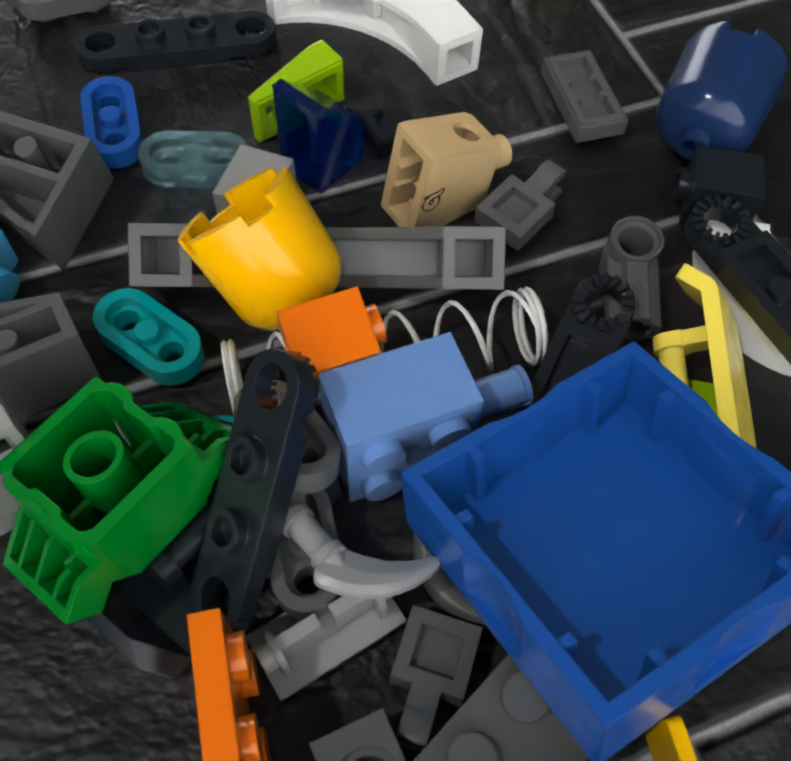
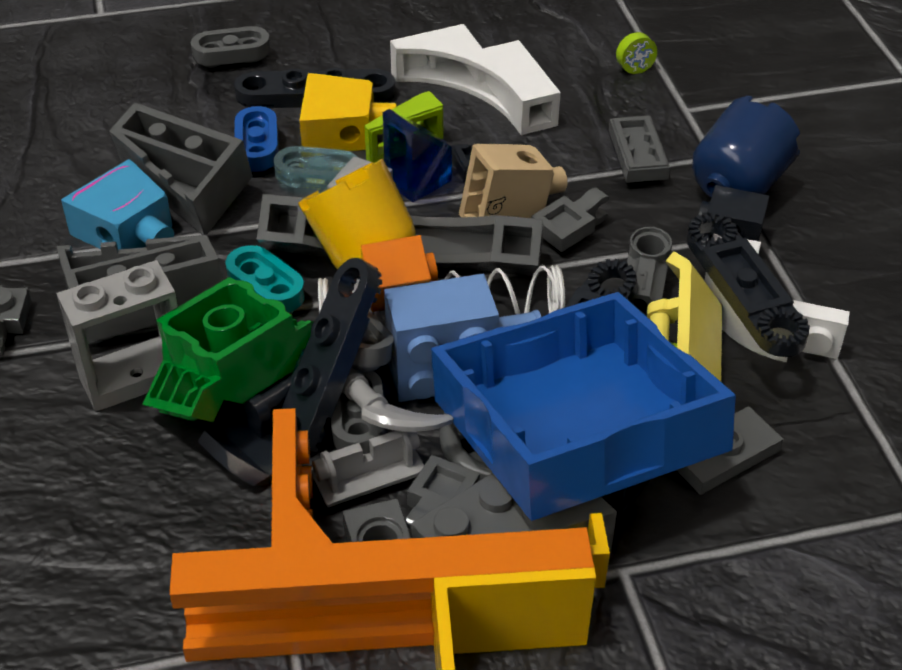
camera: 10 degrees right, 15 degrees down
(211, 77) = (337, 111): none -> yellow torso

